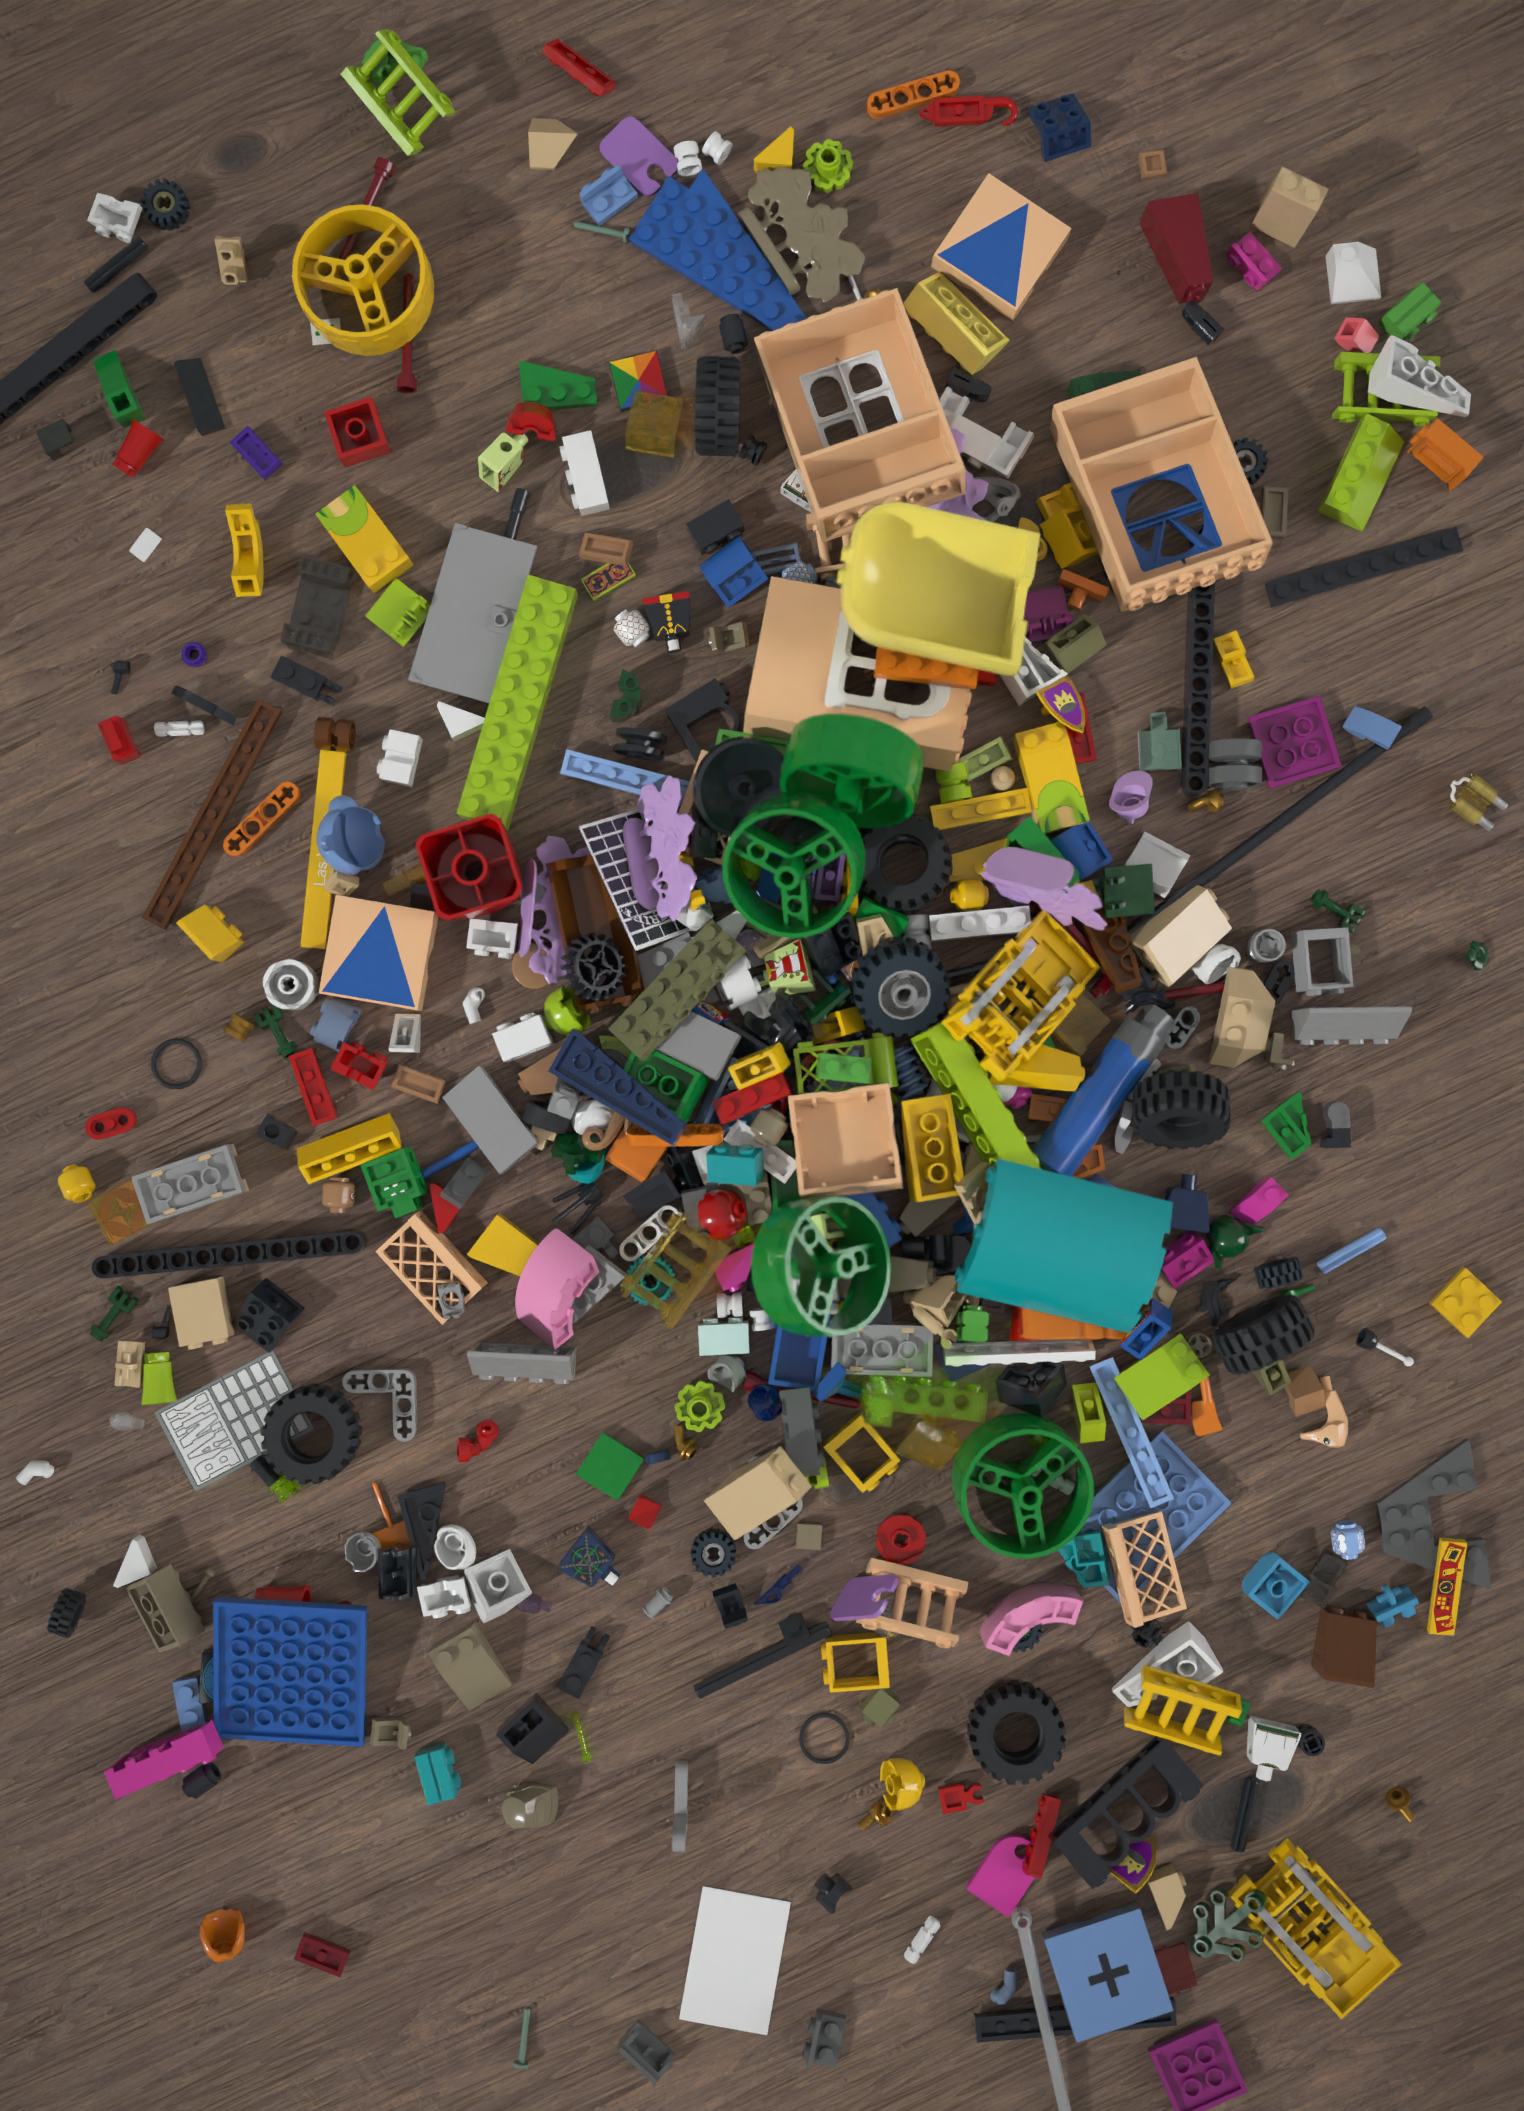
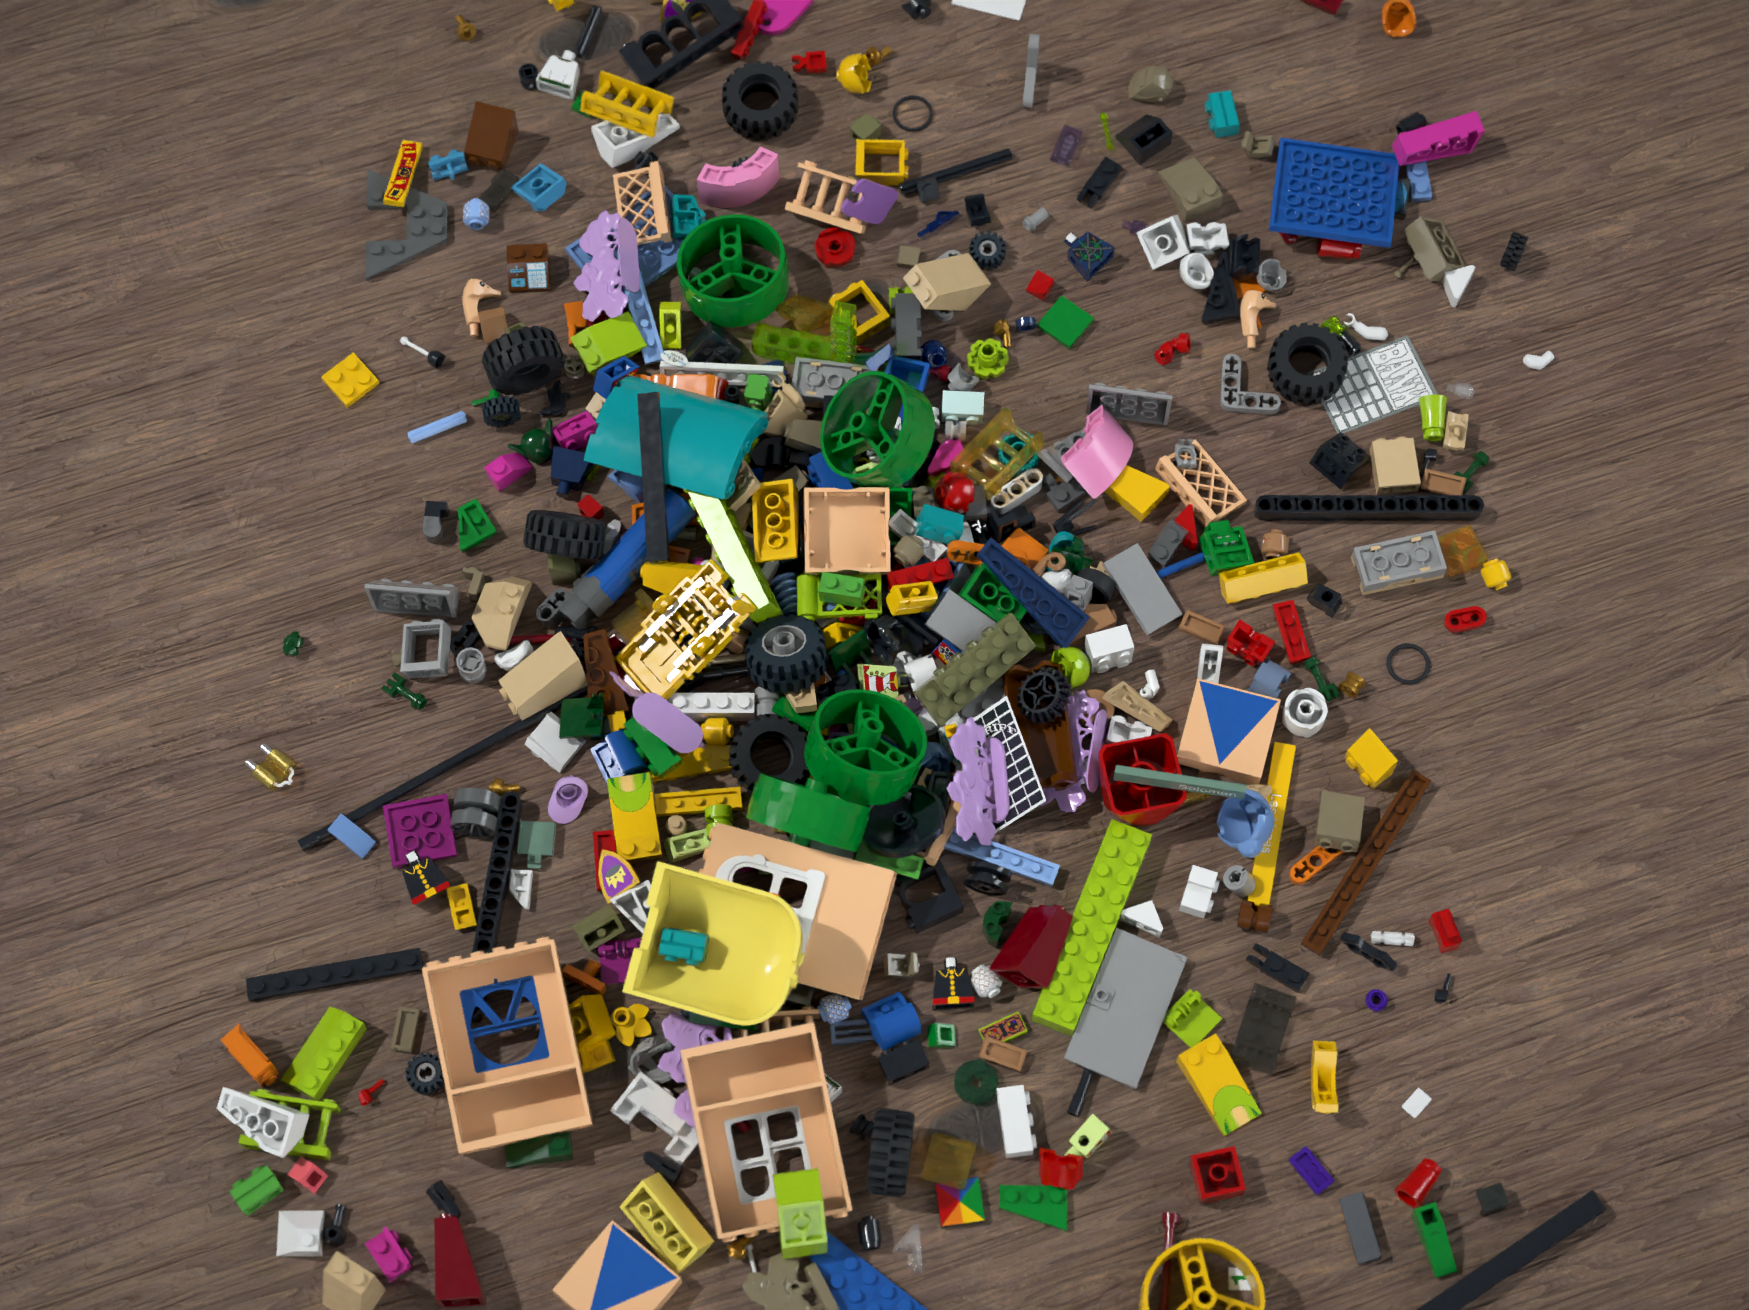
camera: 175 degrees left, 20 degrees down
(142, 1295) = (1442, 483): none -> medium nougat tile
(242, 1487) = (1376, 333): none -> white arm
(243, 854) = (1339, 821): none -> dark tan panel
(354, 773) = (1239, 881): none -> light grey piece
(385, 1506) = (1251, 304): none -> light nougat animal
(423, 855) = (1180, 782): none -> sand green tile
(494, 977) = (1131, 702): none -> tan wing
(580, 666) = (1034, 947): none -> dark red slope
(628, 1711) = (1066, 145): none -> clear purple tile
(647, 516) = (963, 1079): none -> clear green plate
(676, 566) = (941, 1035): none -> green slope
(811, 324) = (800, 1213): none -> lime slope
(976, 607) = (684, 945): none -> teal brick
(1005, 1329) = (732, 390): none -> black pin
(1079, 1364) = (674, 358): none -> white sticker
(1086, 1182) = (653, 477): none -> black tile
(1153, 1158) = (590, 507): none -> red slope
(1168, 690) = (521, 886): none -> white tile
(1182, 1470) = (601, 273): none -> lavender plant
(1272, 1472) = (528, 267): none -> reddish brown slope
(1281, 681) = (423, 878): none -> black torso
(1307, 432) = (364, 1095): none -> red hand
(1315, 284) = (340, 1238): none -> black bar

